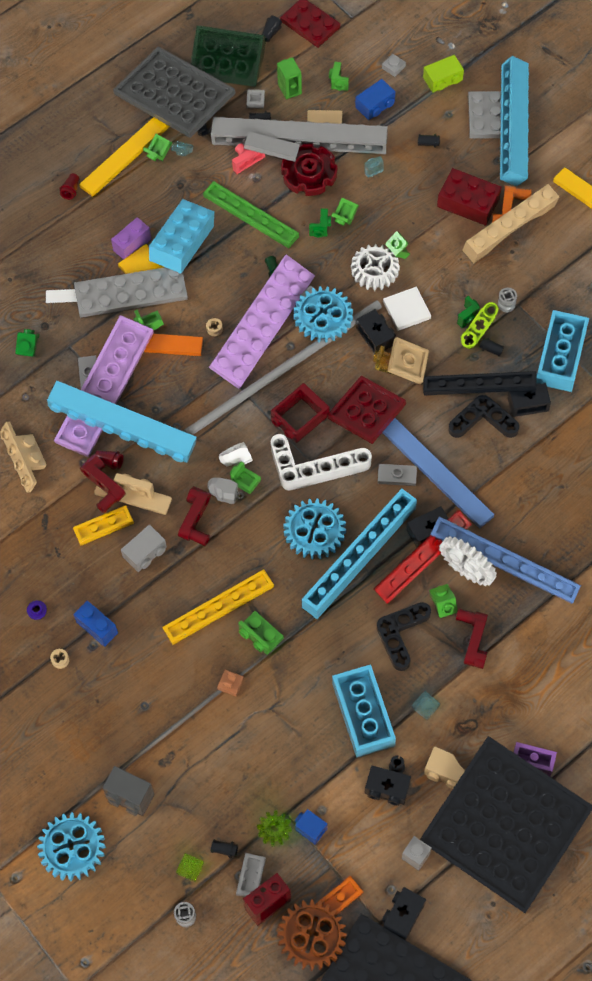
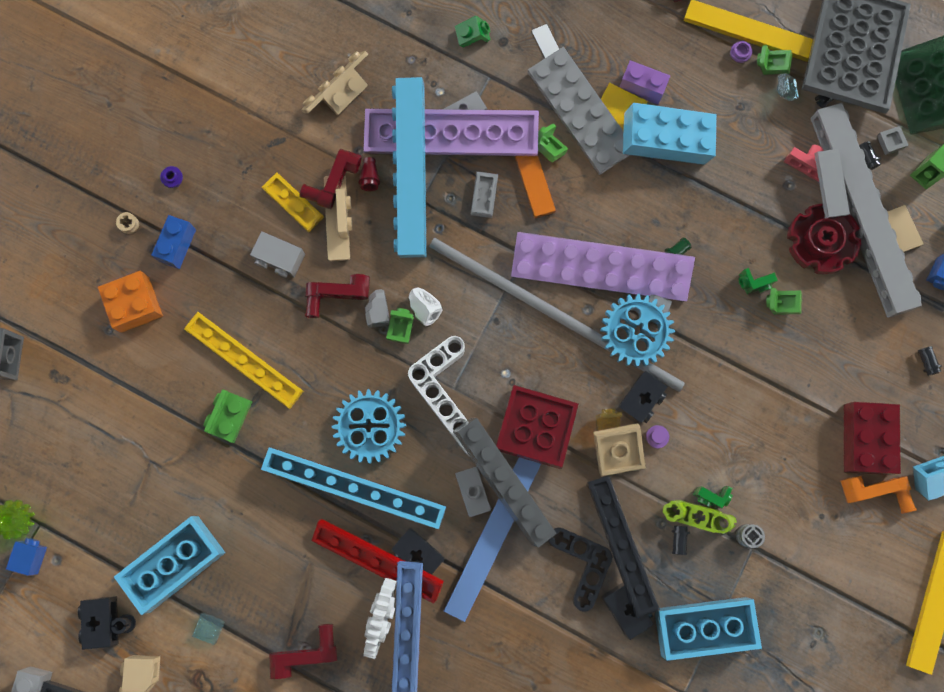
camera: 65 degrees right, 15 degrees up
(130, 674) = (130, 301): none -> orange brick
(138, 167) = (741, 52): none -> medium lavender plate
(166, 382) = (484, 194): none -> light grey plate
(214, 321) = (576, 224): tan bush -> none
(230, 683) = (161, 407): nougat tile -> none
(251, 214) = (736, 198): bright green tile -> none
(309, 397) = (484, 334): dark red window -> none
(373, 273) = (718, 359): white gear -> none
(374, 166) = (862, 310): clear light blue plate -> none
(395, 627) = (288, 561): black beam -> none
(398, 245) = (764, 380): bracket -> none
(399, 442) = (504, 482): none -> dark grey brick
(407, 308) = (690, 422): white tile -> none
(409, 333) = (657, 436): none -> medium lavender plate
(444, 600) = (337, 602): bright green bracket -> none
(492, 235) = (858, 503): tan arch -> none

